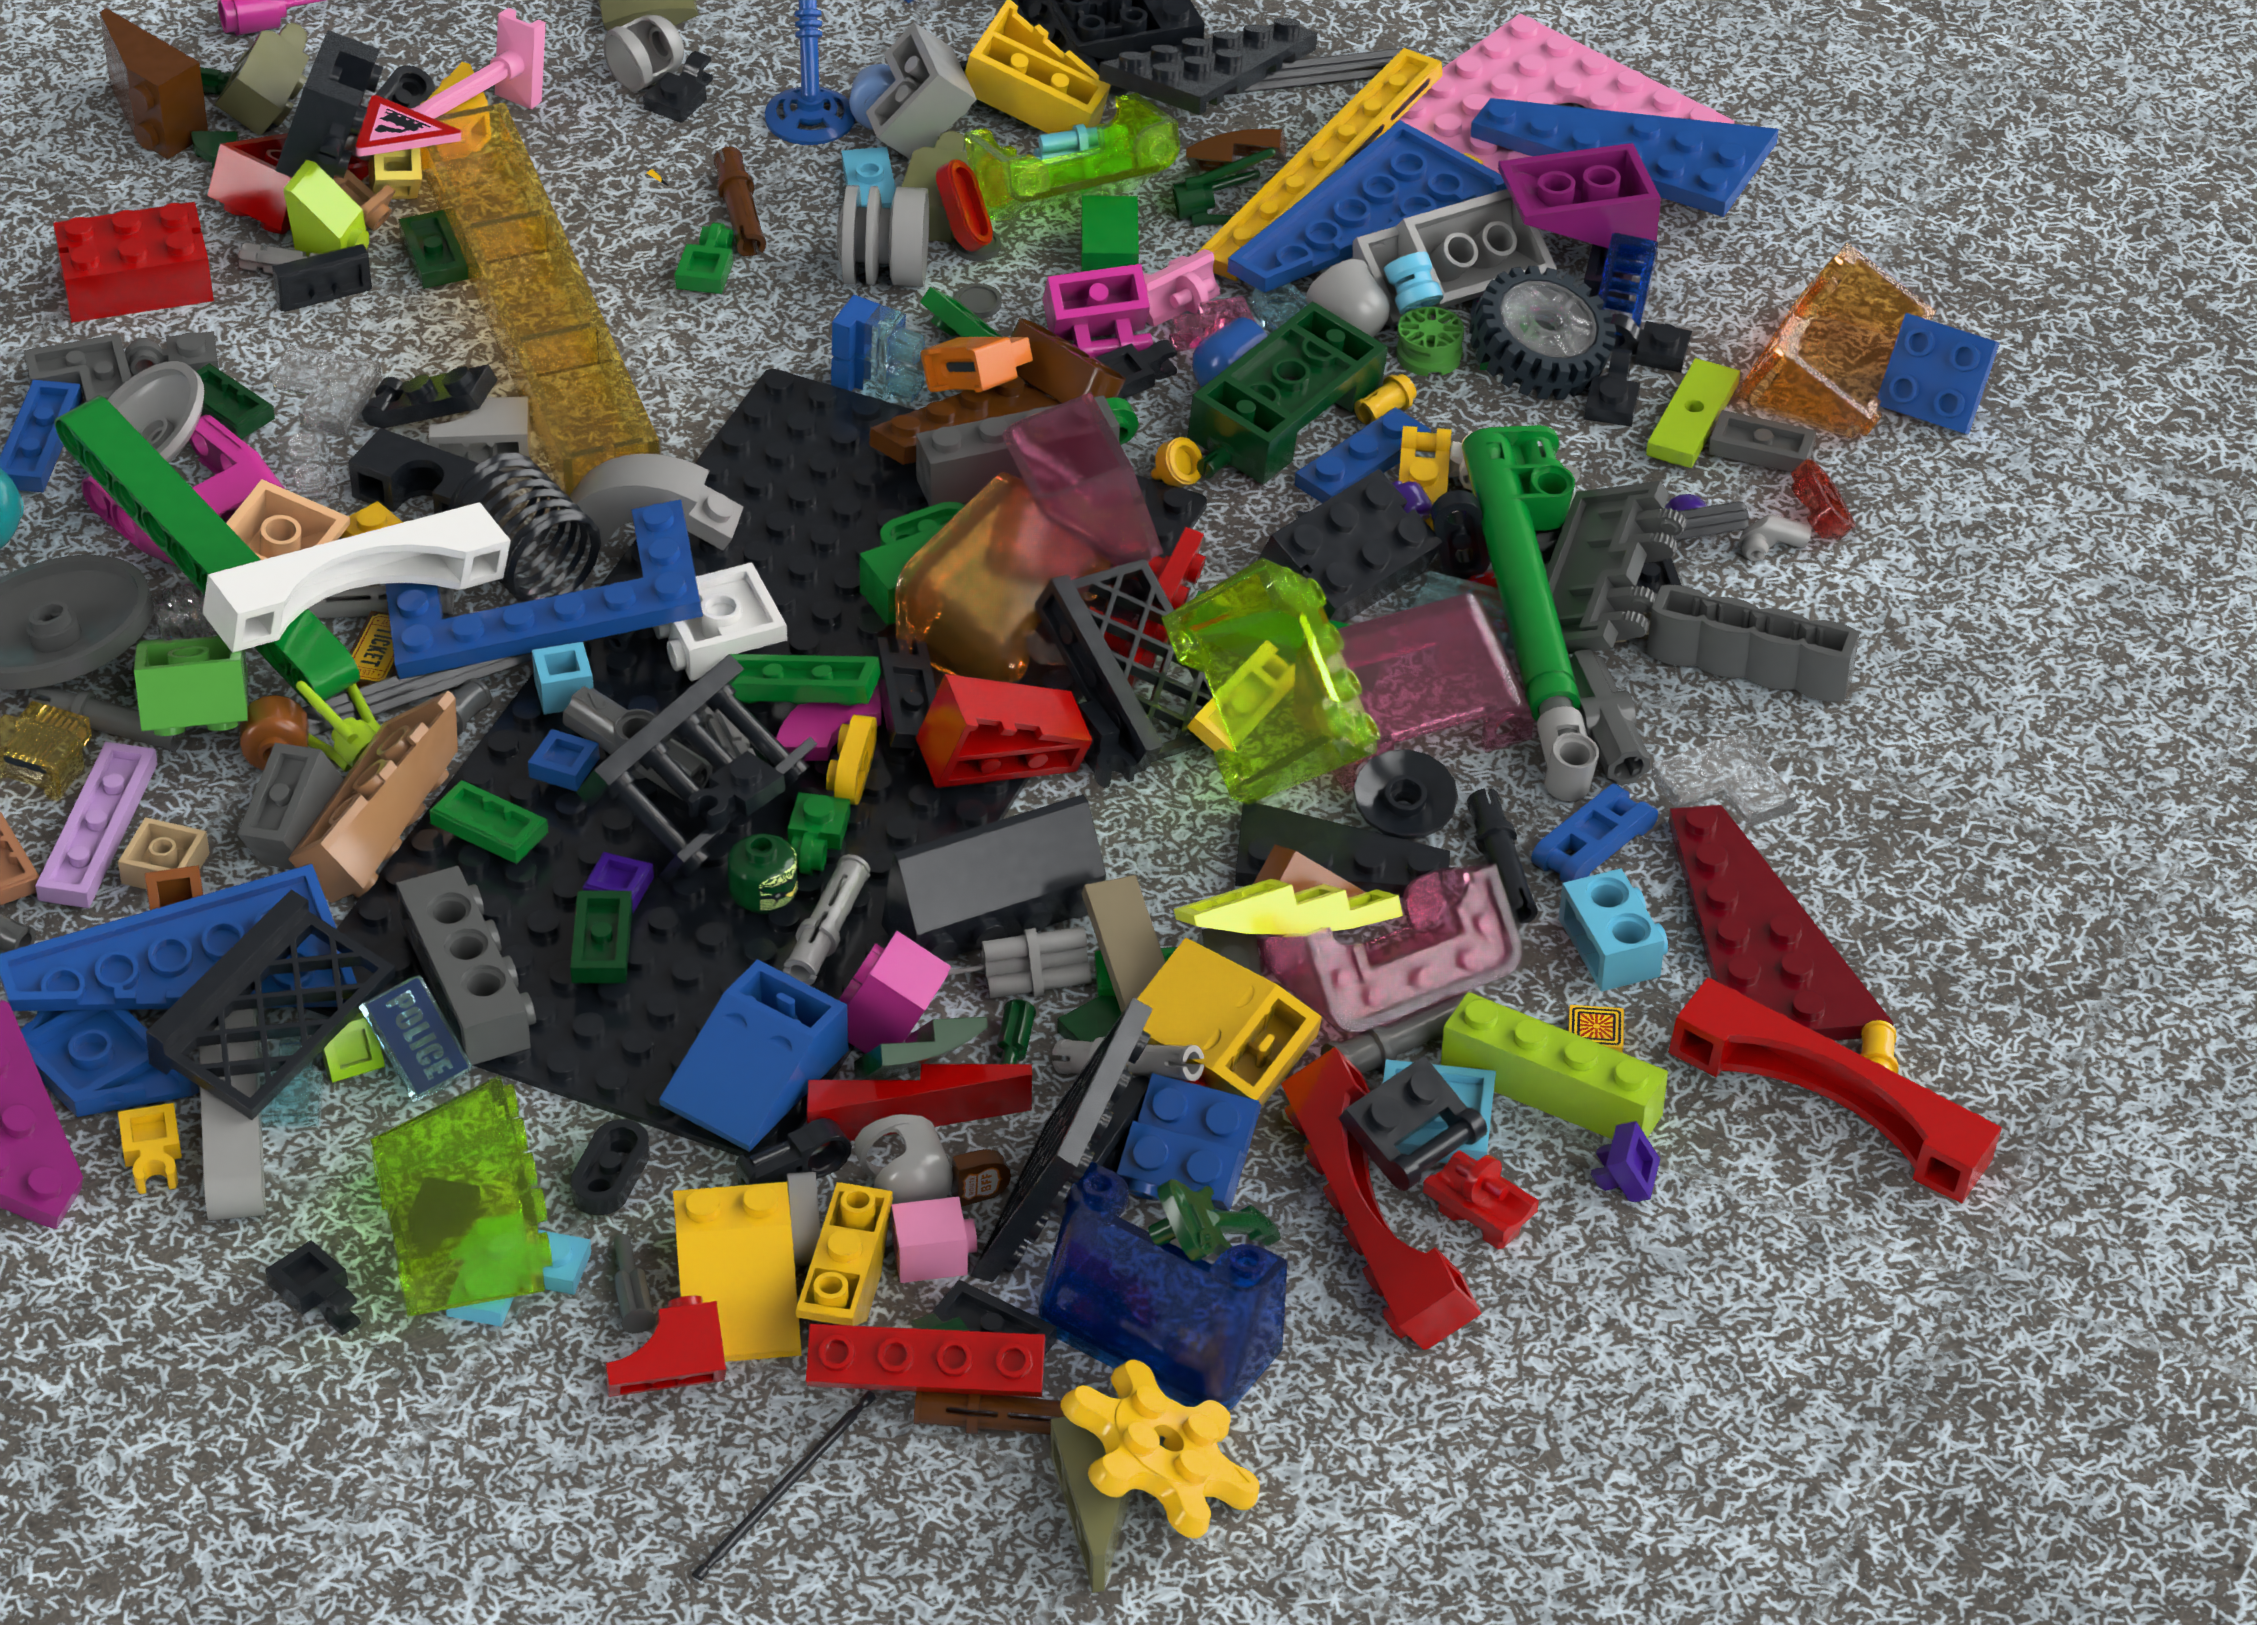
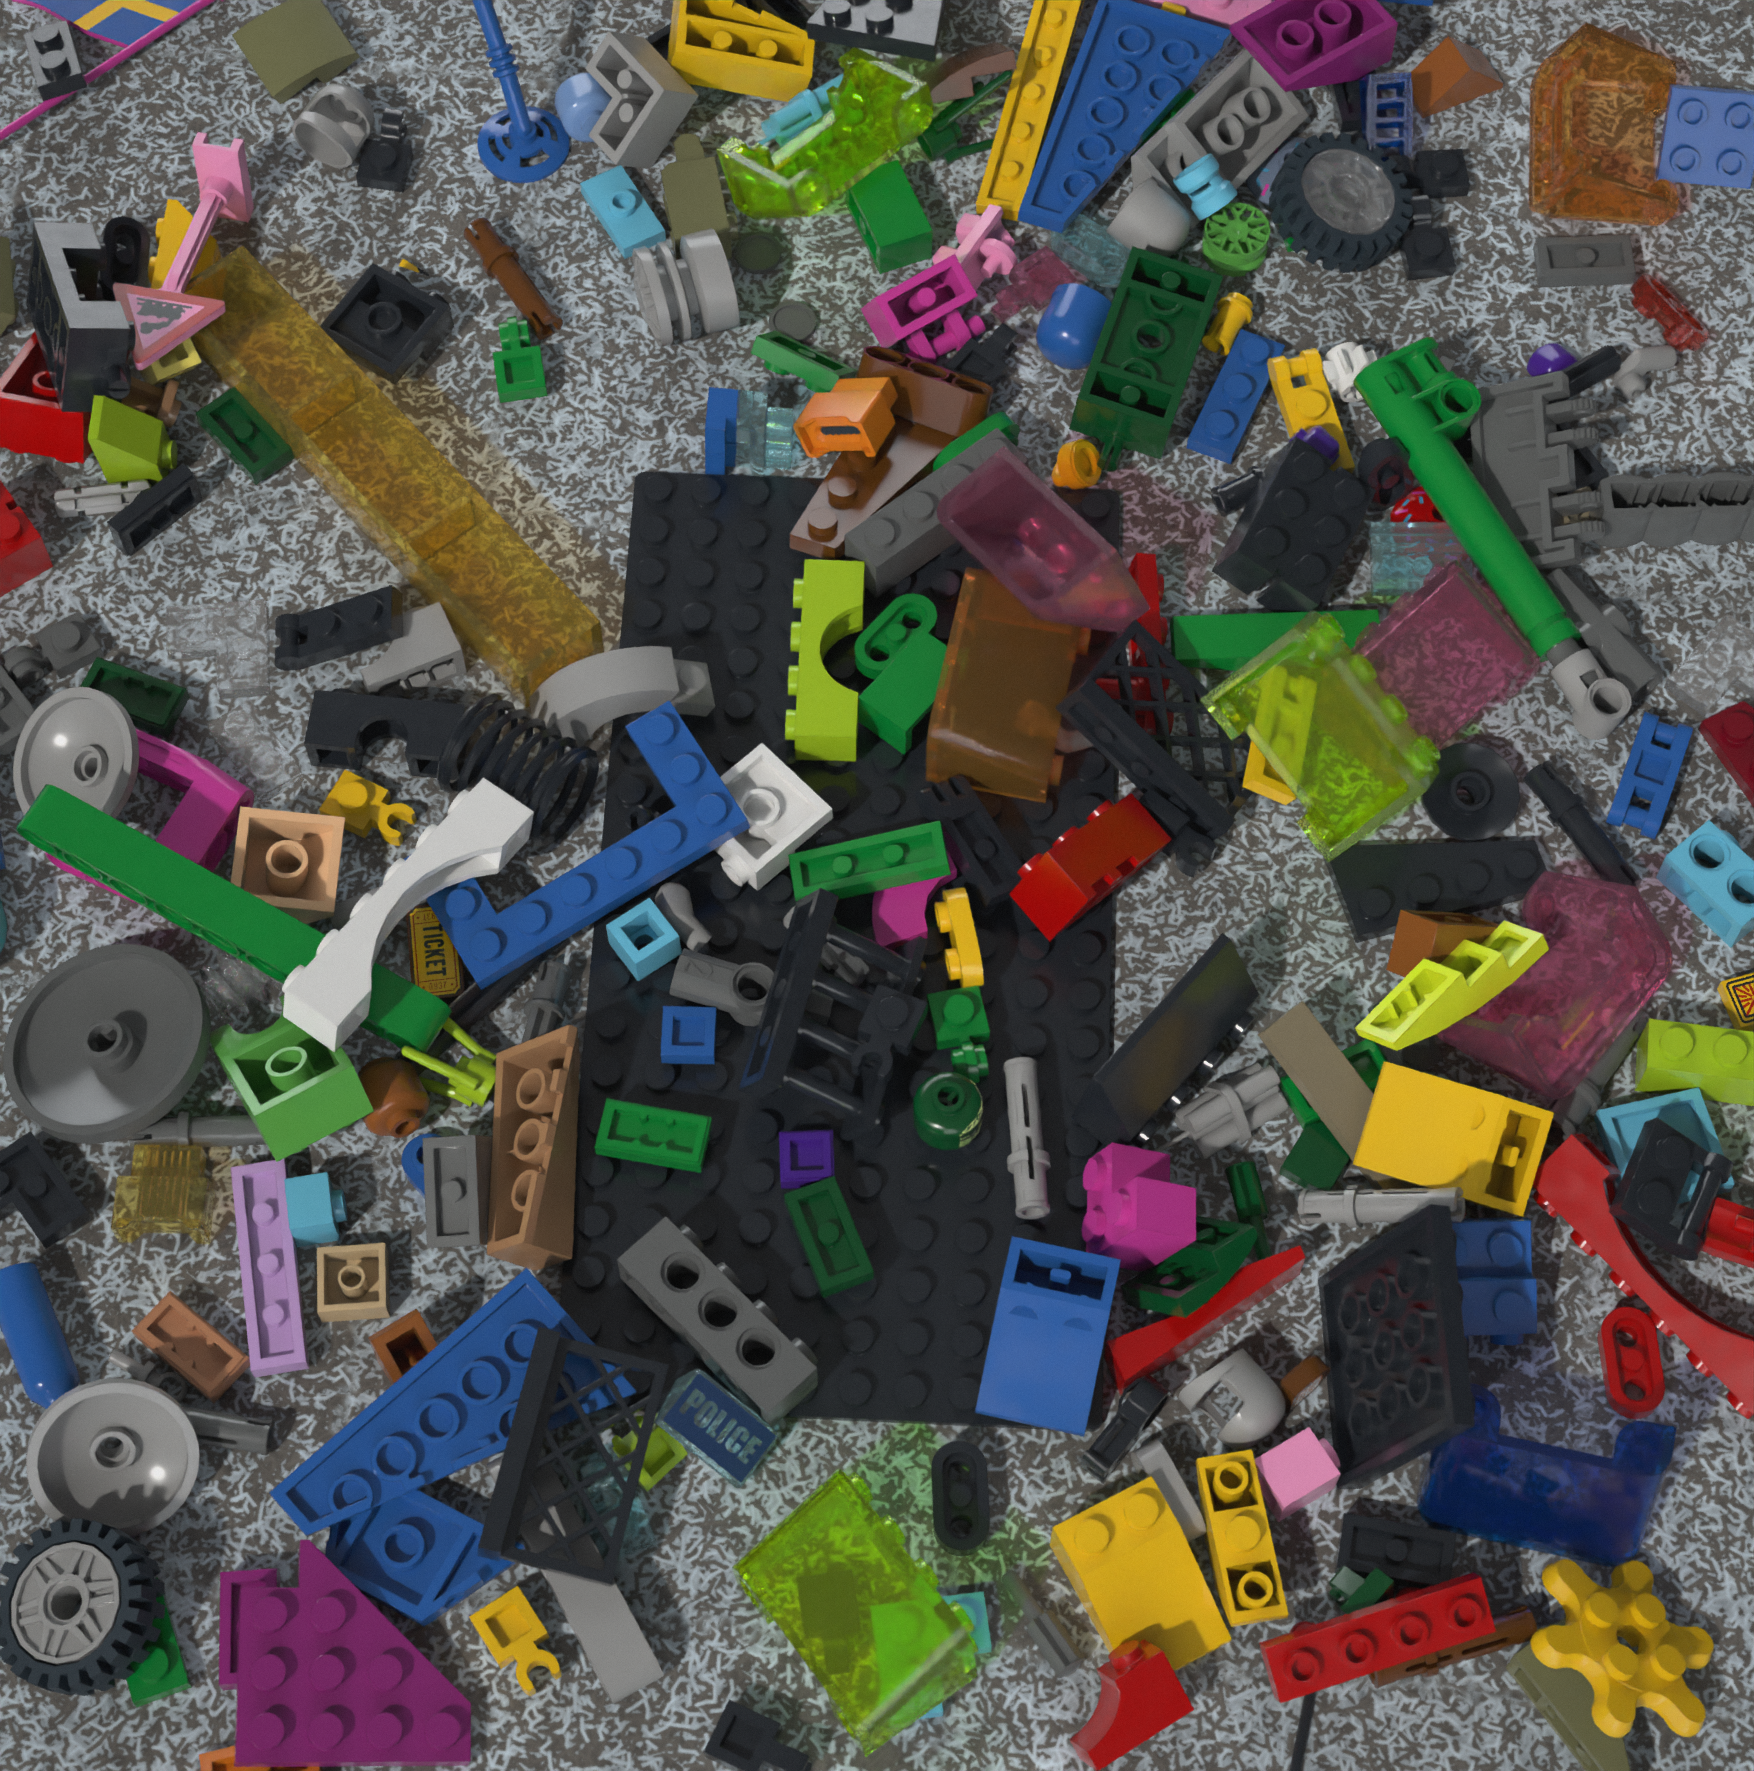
camera: 20 degrees left, 20 degrees up
(159, 790) = (314, 1209): none -> medium azure plate
(606, 199) = (388, 323): none -> black plate
(607, 670) = (676, 906): none -> light grey arm
(826, 564) = (825, 710): none -> lime arch
(964, 205) = (741, 223): red tile -> none
(1201, 1227) = (1573, 1410): dark green piece -> none
(1306, 1262) = (1631, 1365): none -> red plate
(1693, 413) = (1508, 247): lime tile -> none
(1715, 275) = (1451, 77): none -> dark orange slope

